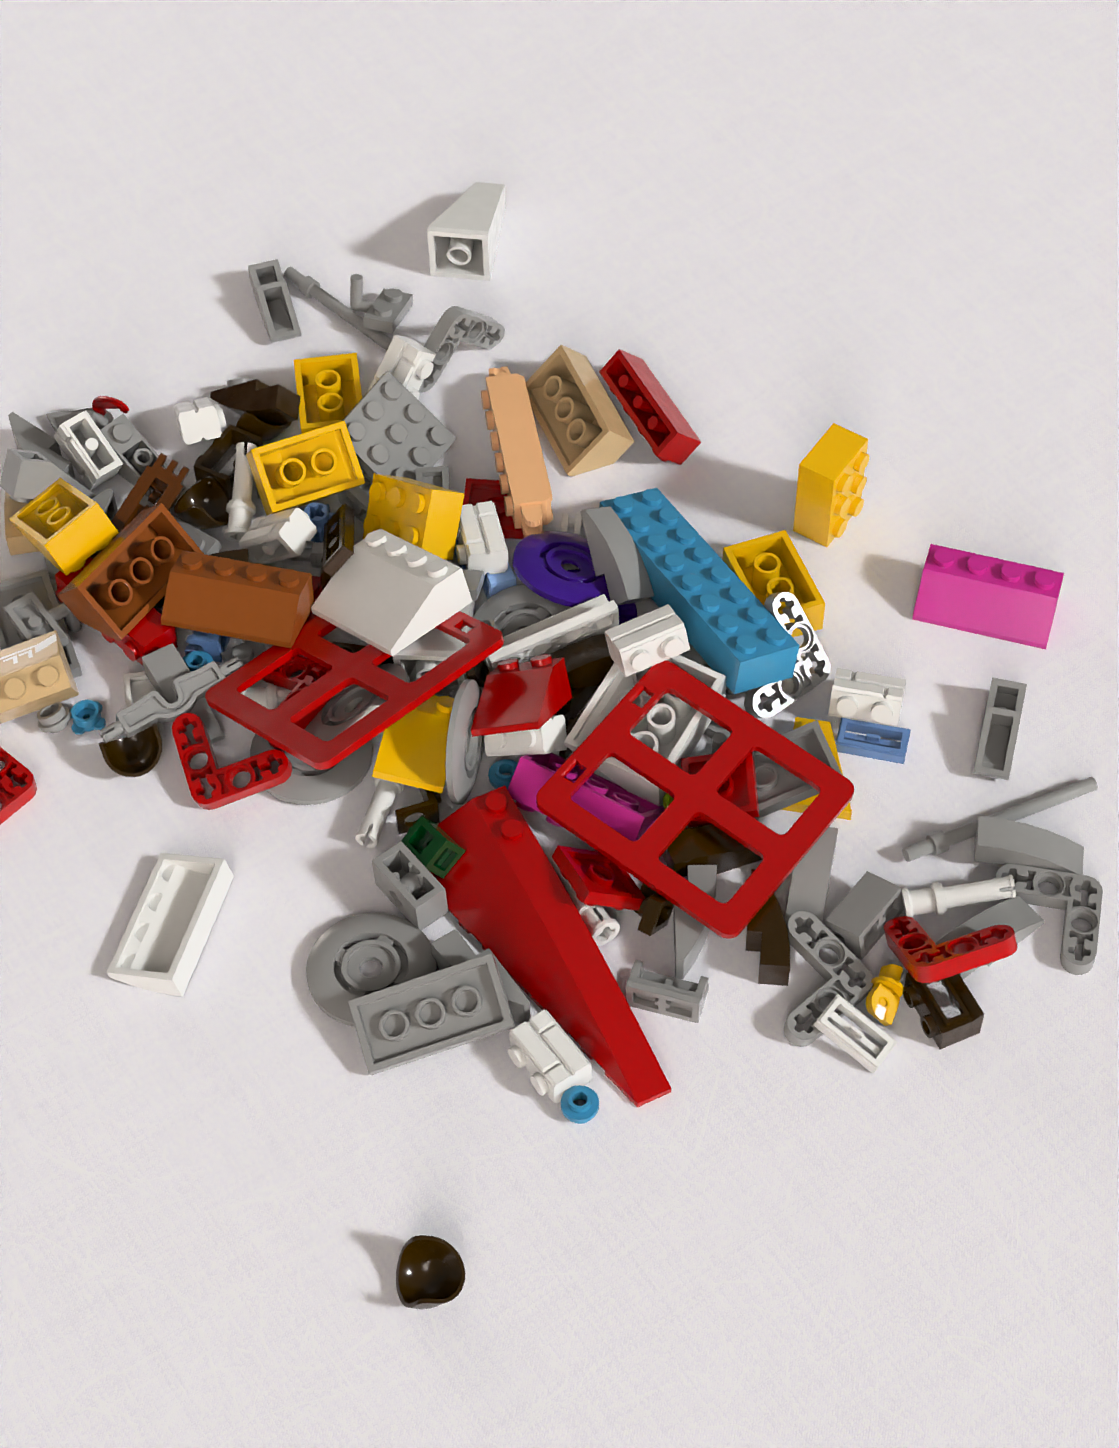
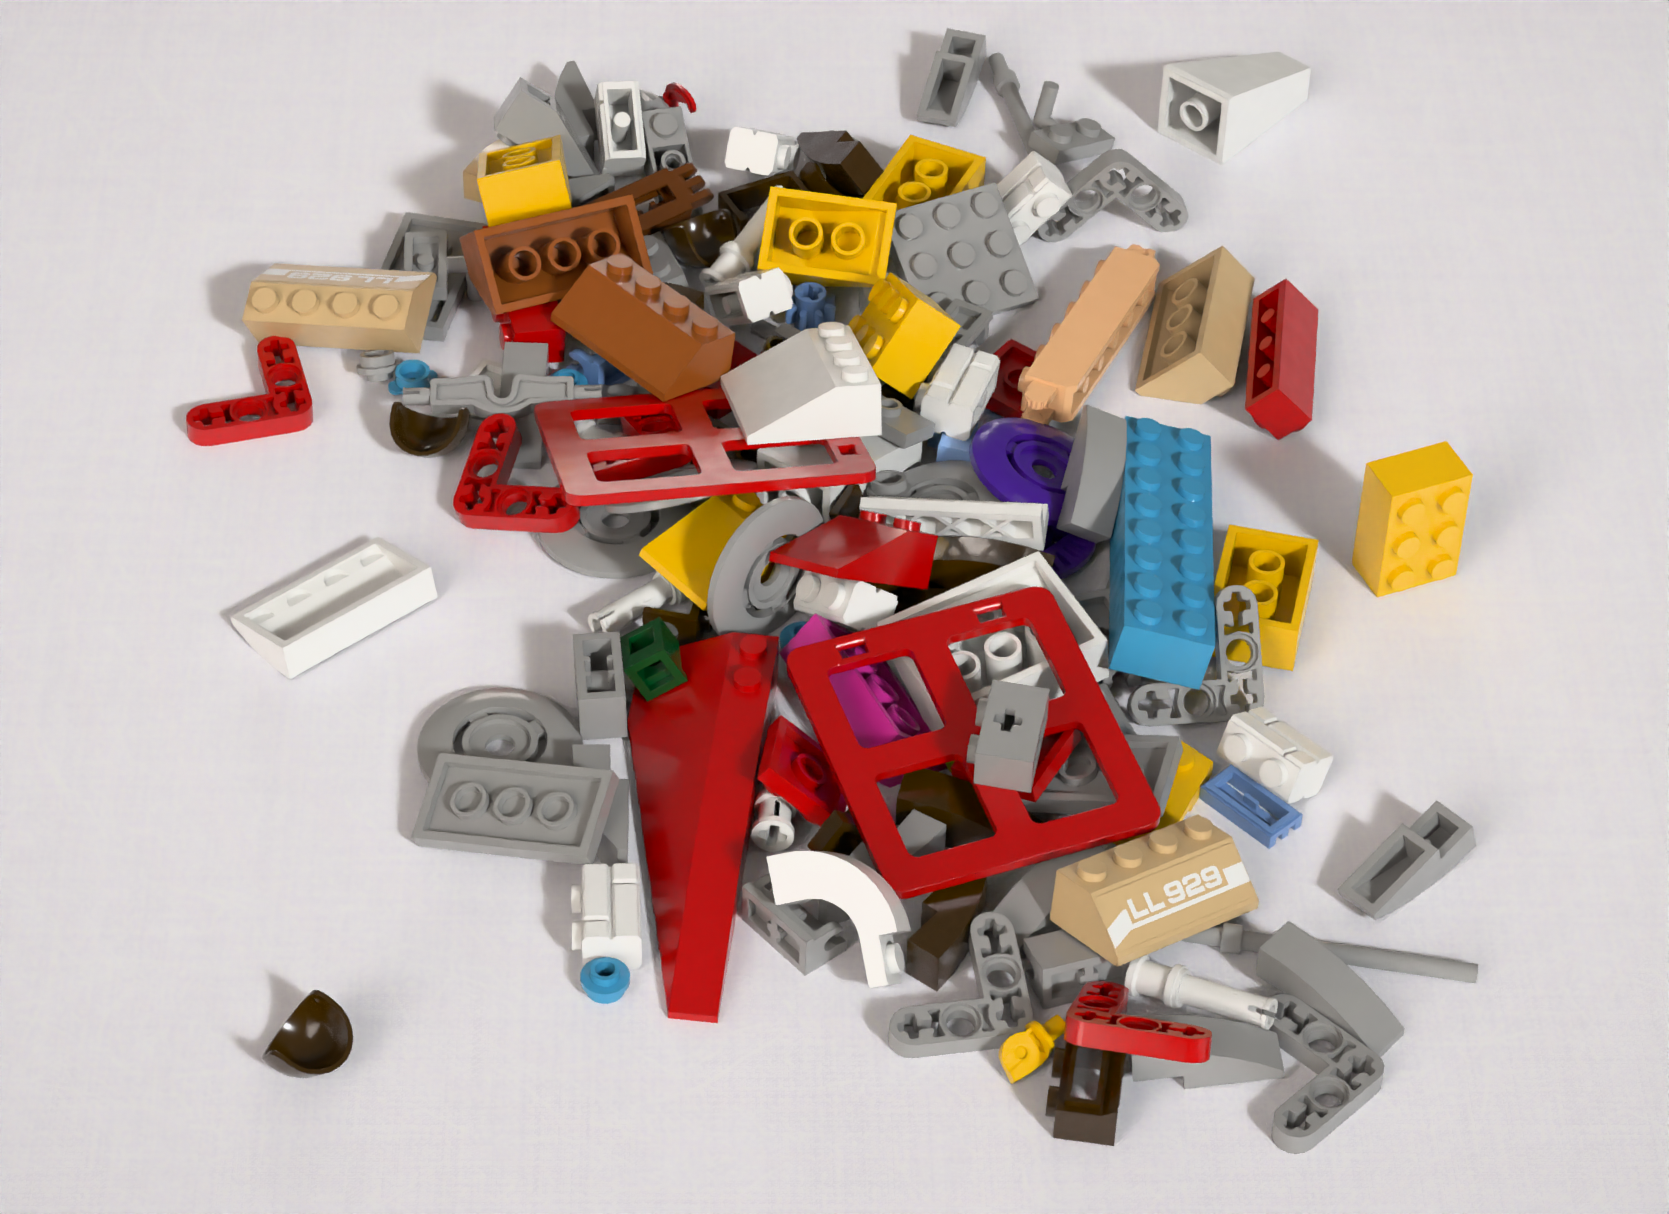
camera: 30 degrees right, 10 degrees down
(338, 539) = (803, 320): dark brown tile -> none
(647, 640) = (1037, 556): white brick -> none
(705, 948) = (857, 891): none -> white arch
(729, 782) = (1010, 735): none -> light grey brick
(849, 1045) = (975, 1102): white tile -> none
(881, 841) = (1153, 890): none -> tan slope
(988, 596) = (1518, 727): dark pink slope -> none

